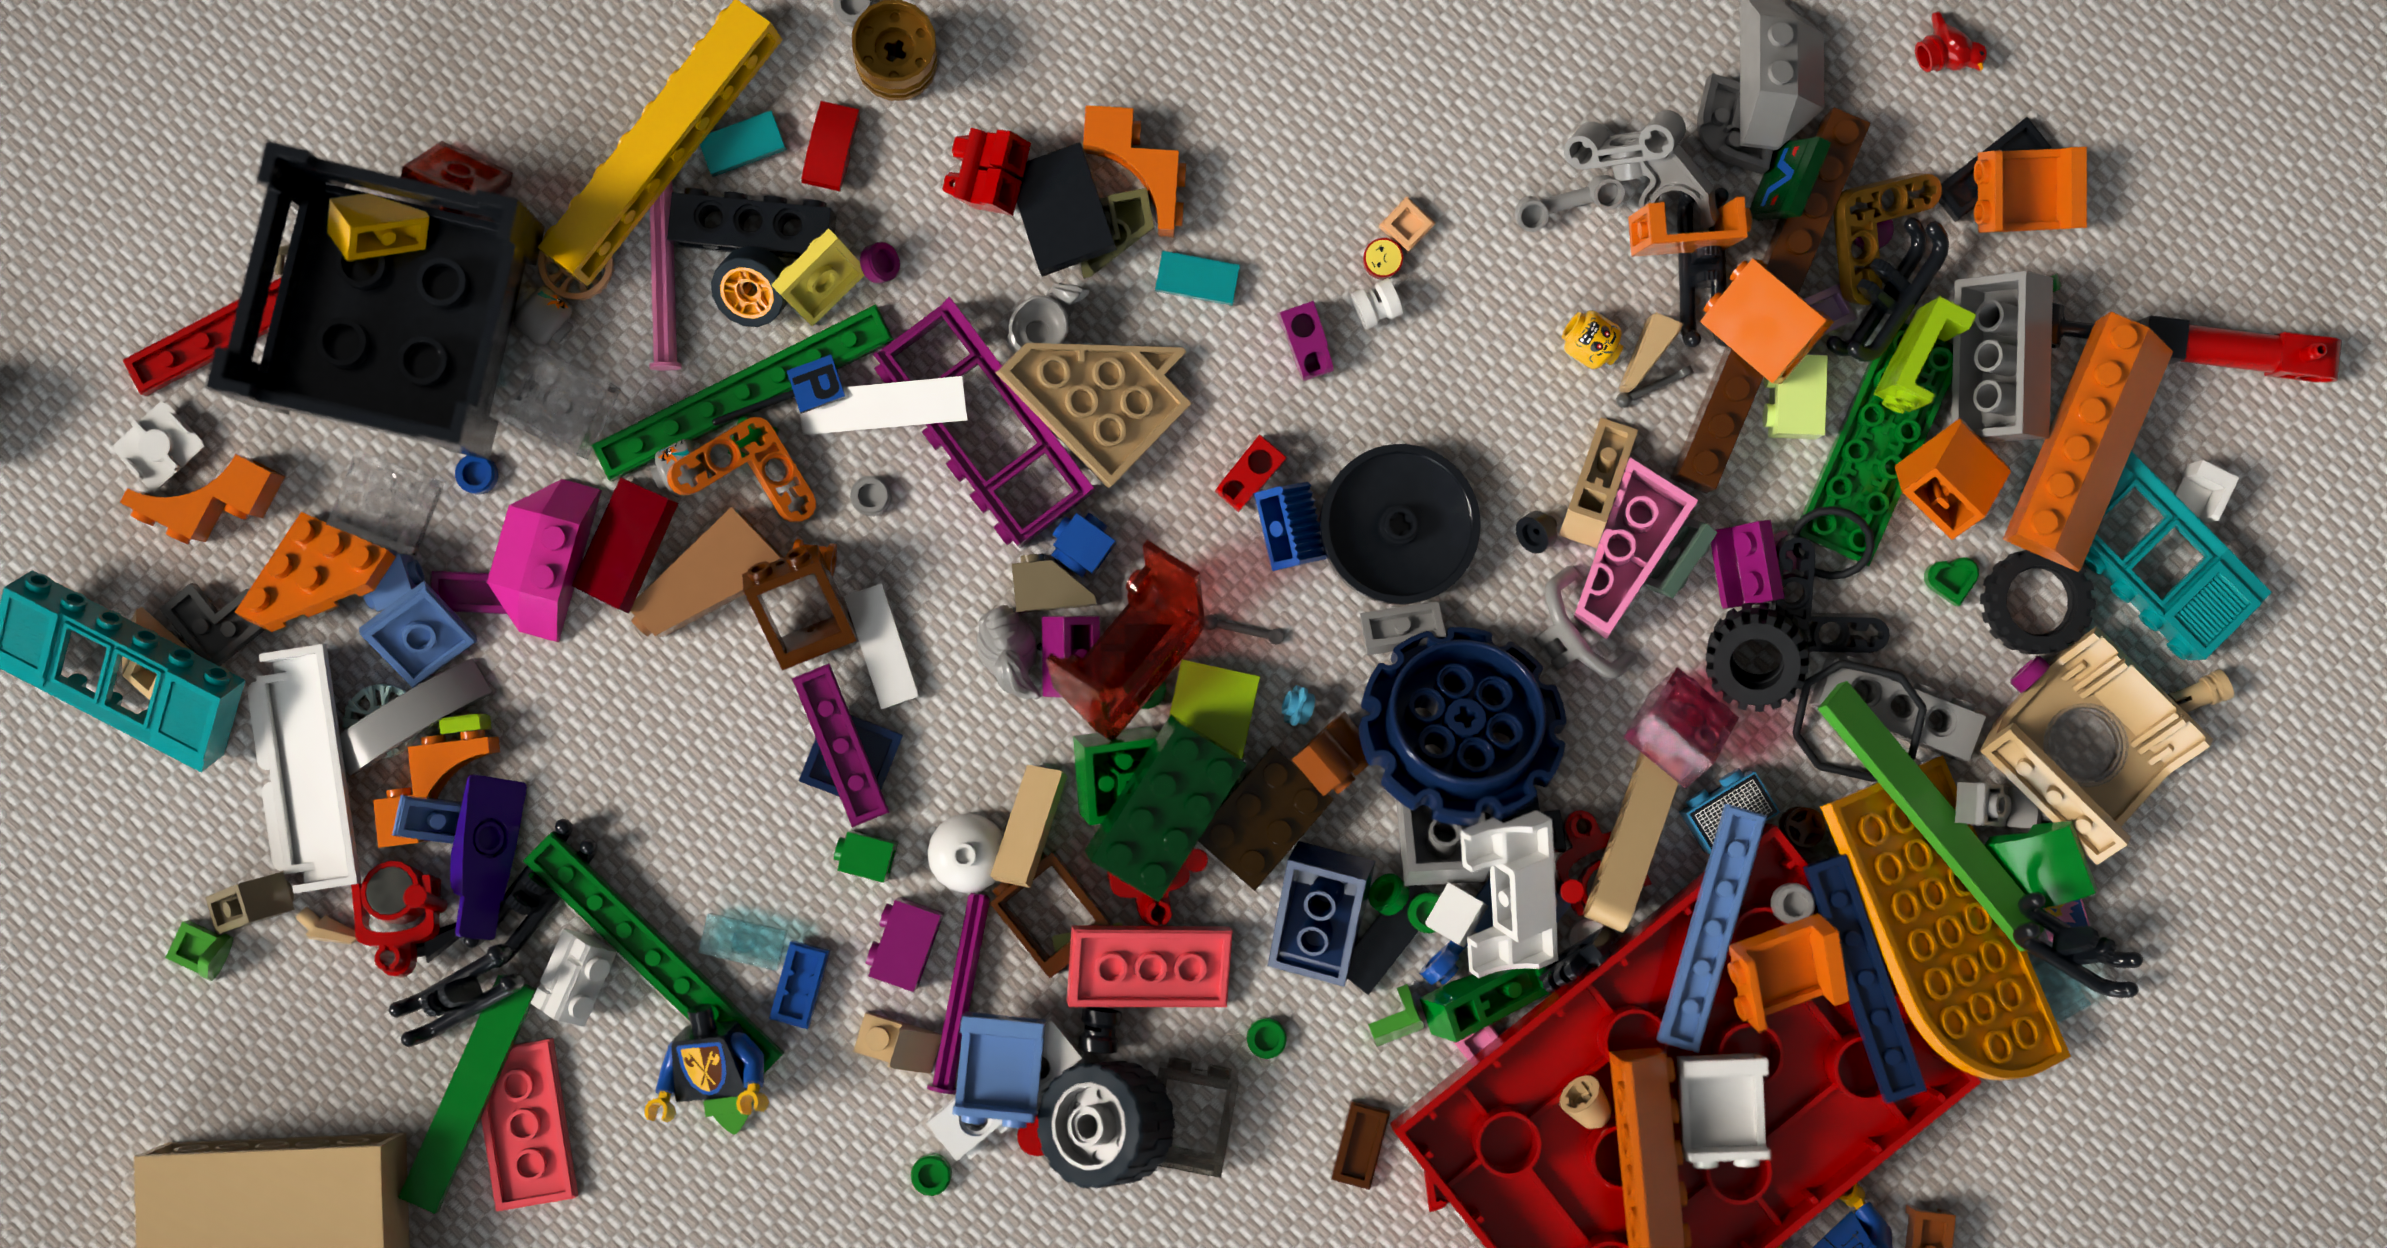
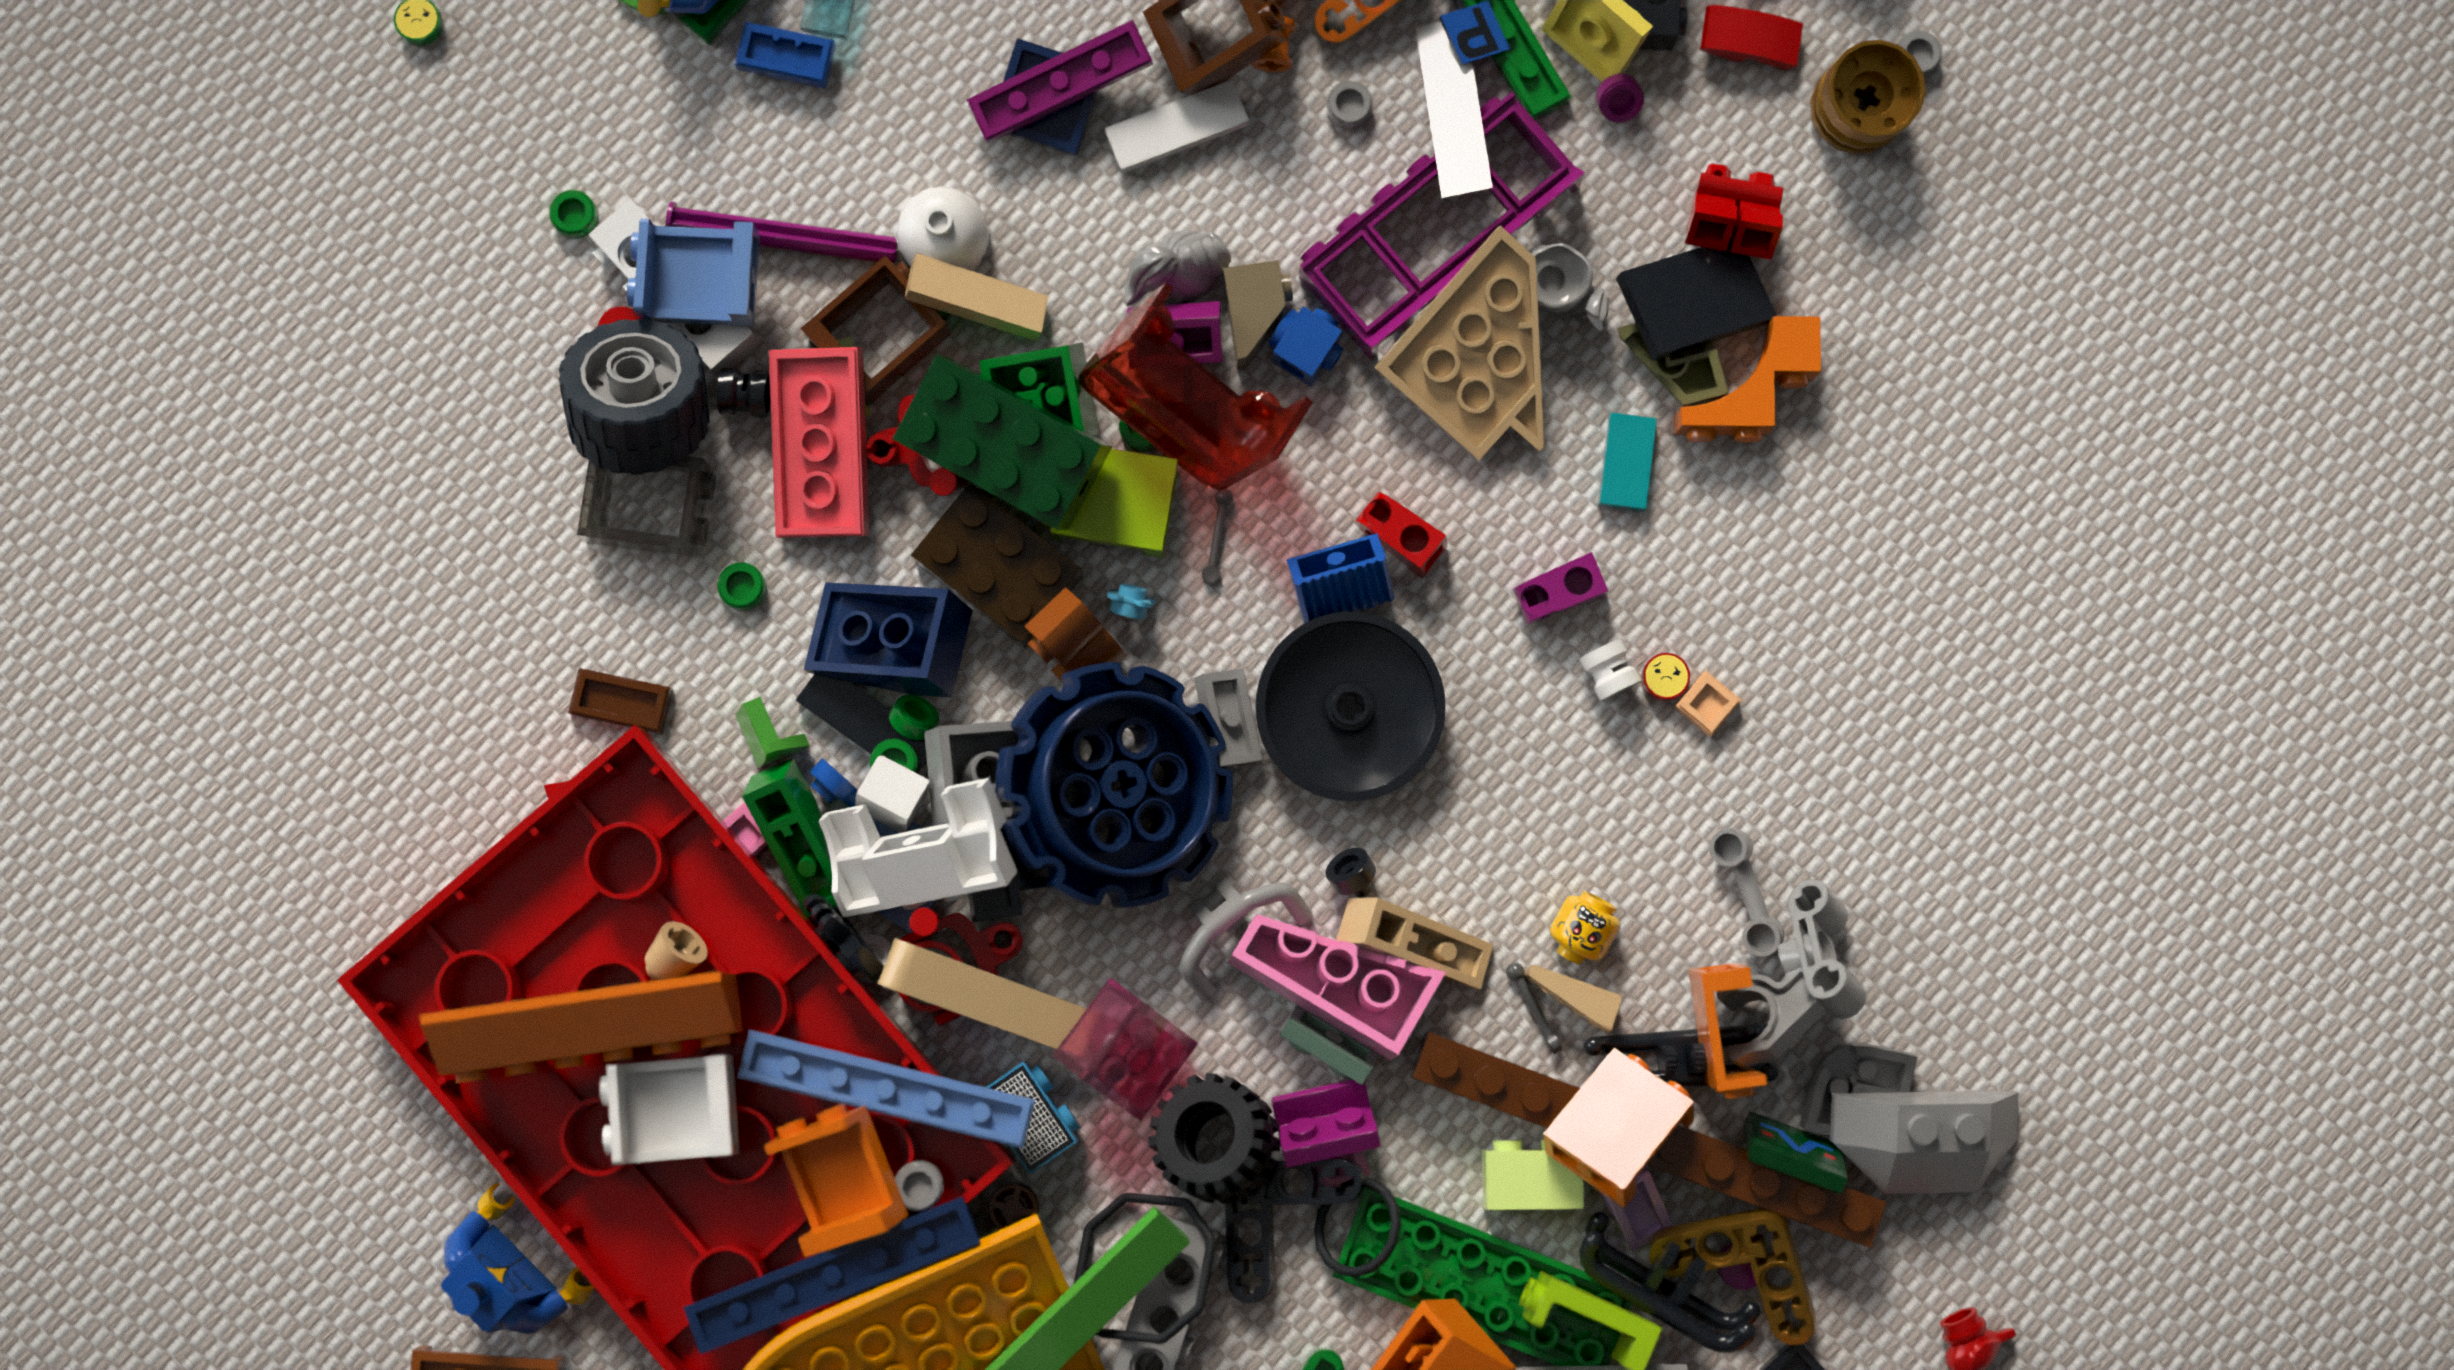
camera: 85 degrees right, 5 degrees down
(865, 855) = (934, 119): green brick -> none
(898, 1043) = (721, 167): tan slope -> none
(904, 943) = (835, 167): magenta brick -> none

